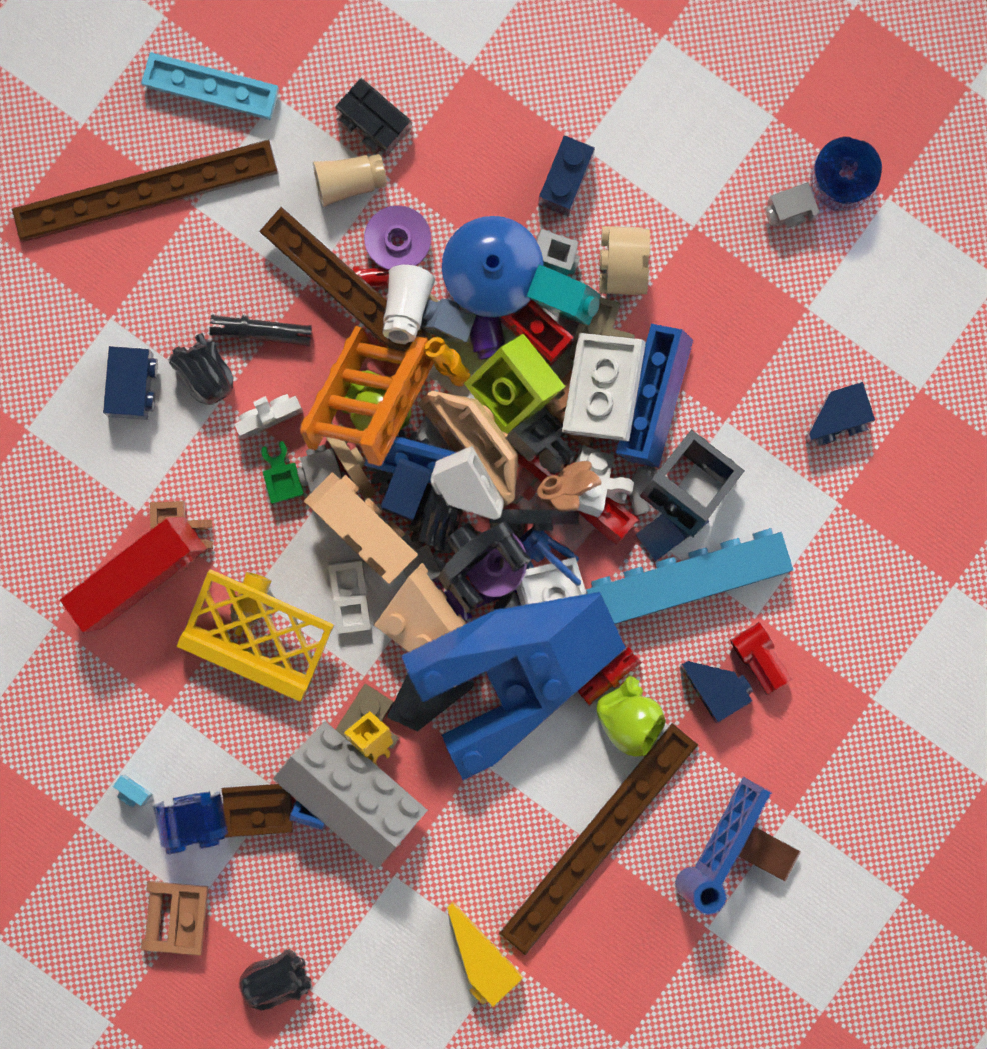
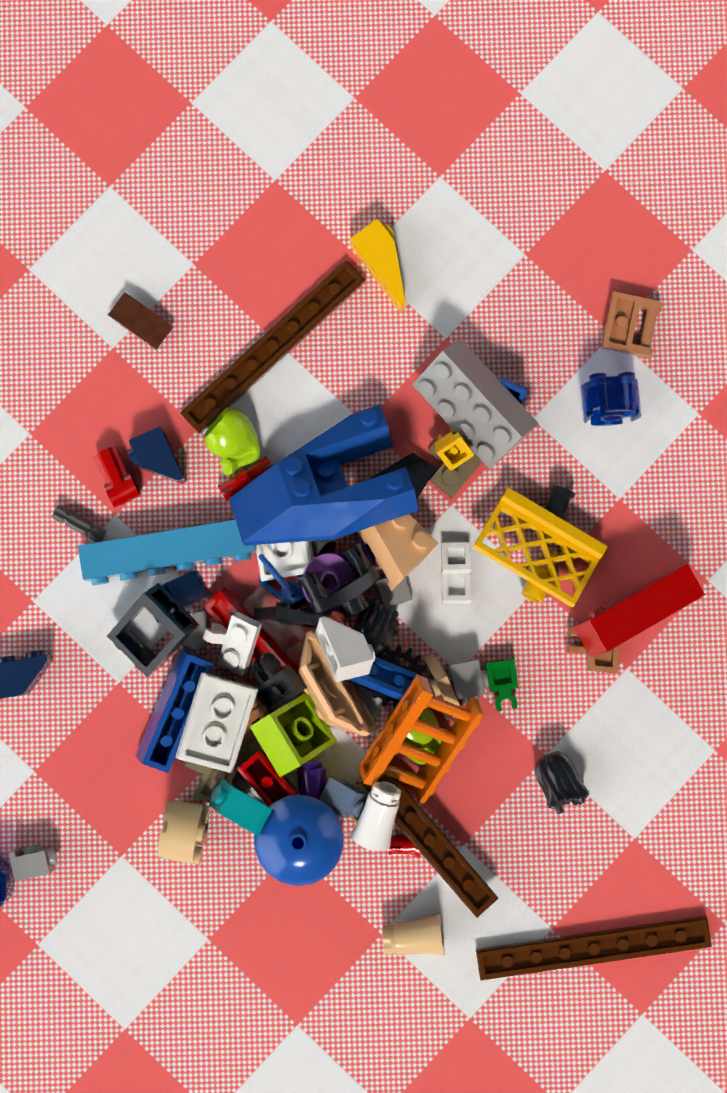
camera: 175 degrees left, 0 degrees up
(129, 383) = (624, 778): dark blue brick -> none
(131, 791) = (656, 431): medium azure plate -> none
(210, 86) = (527, 1035): medium azure plate -> none
(238, 693) = (559, 501): none -> black bush
(257, 810) = (554, 403): reddish brown plate -> none
(260, 330) = (516, 813): black pin -> none
(266, 416) = (511, 735): white plate -> none
(274, 981) = (554, 263): black piece -> none
(361, 526) = (440, 627): light nougat wedge -> none
(373, 118) = (387, 988): black brick -> none
(392, 223) = (374, 891): medium lavender dish -> none
(405, 489) = (398, 653): dark blue slope -> none
(447, 361) = (348, 762): light orange pin -> none
(558, 252) = (240, 846): light grey brick -> none
(565, 488) = (258, 639): nougat plate -> none
(566, 175) = (224, 914): dark blue brick -> none
(703, 883) = (189, 298): blue piece -> none
(797, 598) = (79, 524): none -> dark grey axle

